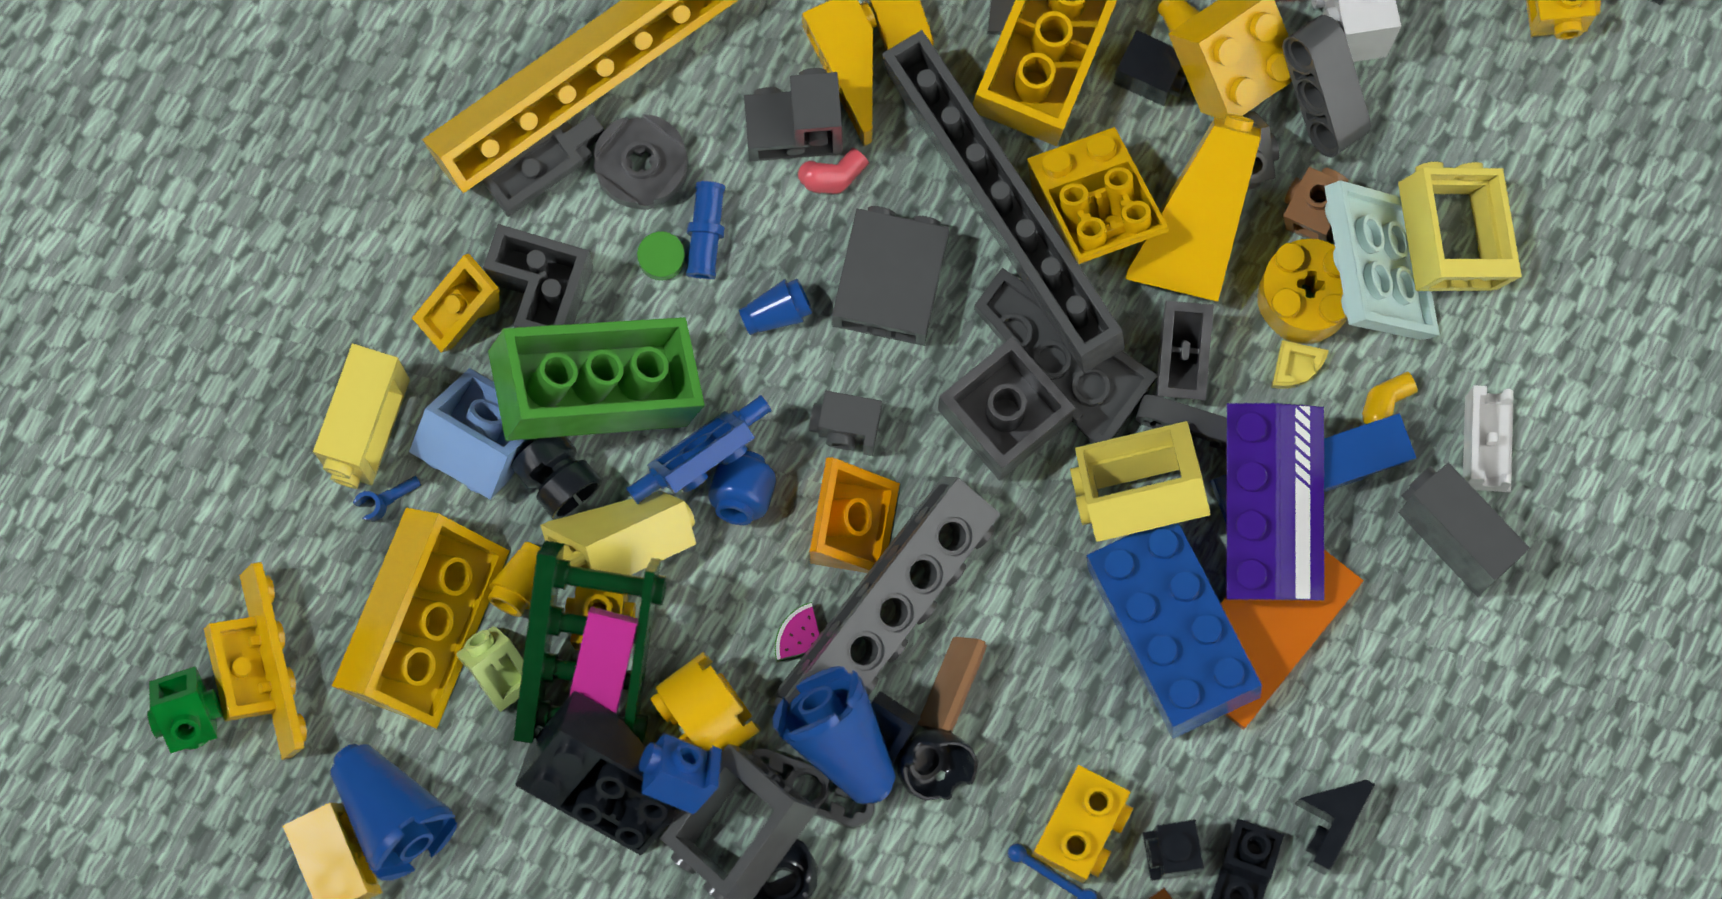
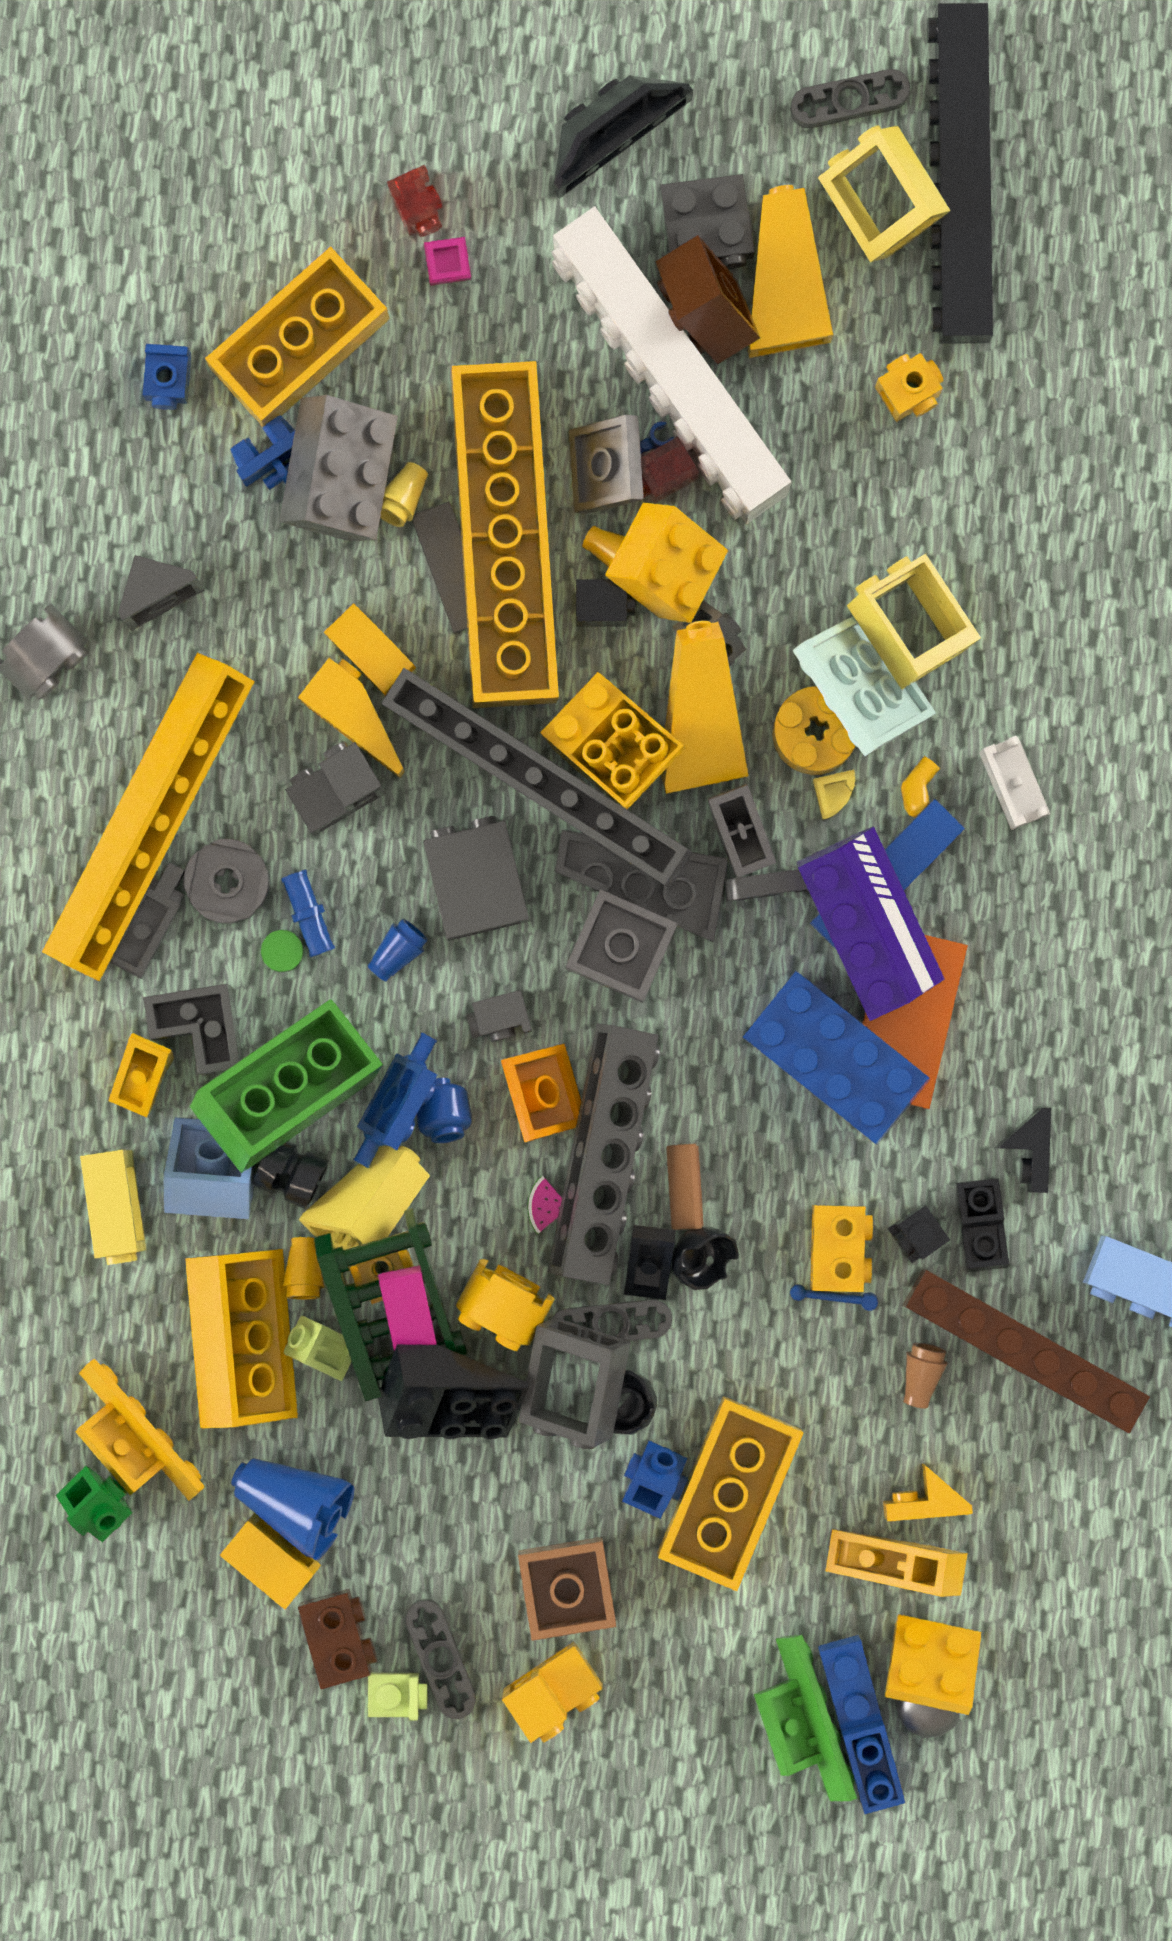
camera: 25 degrees left, 10 degrees up
(385, 498) = (164, 1254): blue hand -> none
(680, 773) = (512, 1369): blue brick -> none
(832, 177) = (386, 819): coral arm -> none
(838, 733) = (616, 1276): blue cone -> none
(1132, 459) = (739, 938): light yellow window -> none
(1307, 204) = (775, 653): medium nougat brick -> none
(1326, 85) = (752, 554): dark grey beam -> none
(1461, 527) = (1026, 870): dark grey brick -> none

